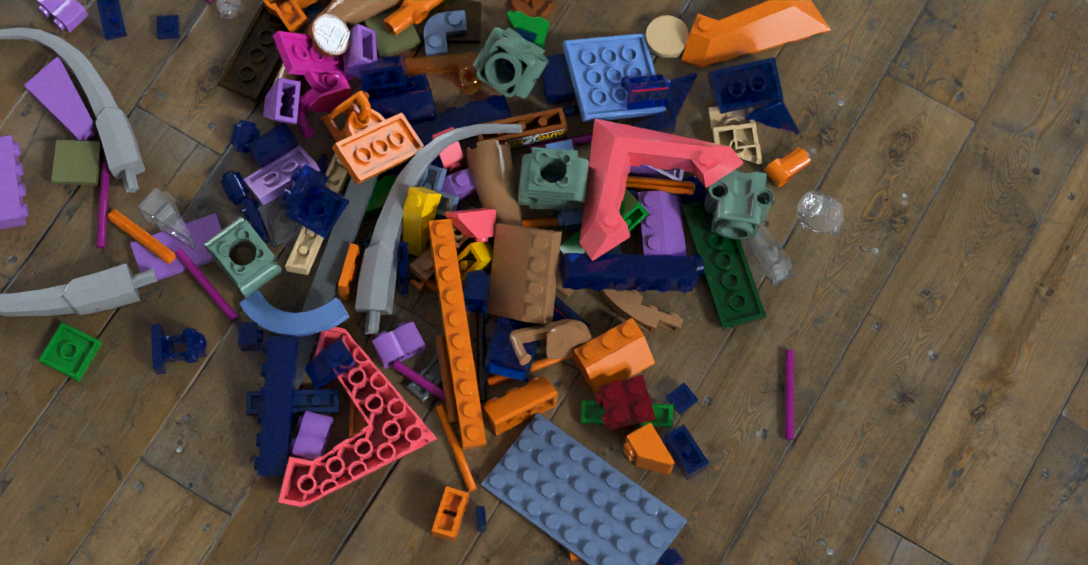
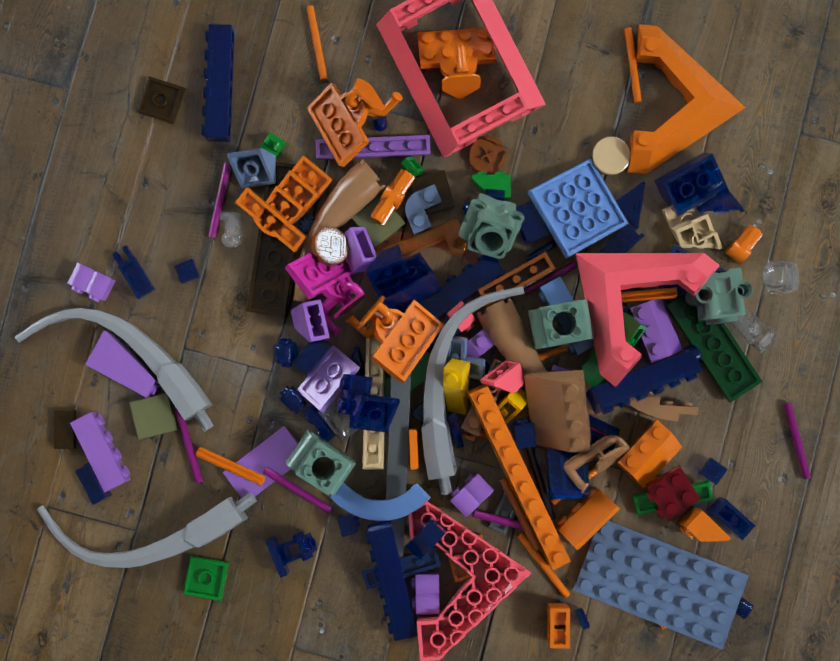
camera: 15 degrees left, 15 degrees up
(162, 212) = (245, 442): clear slope -> none
(646, 91) = (610, 213): clear blue panel -> none

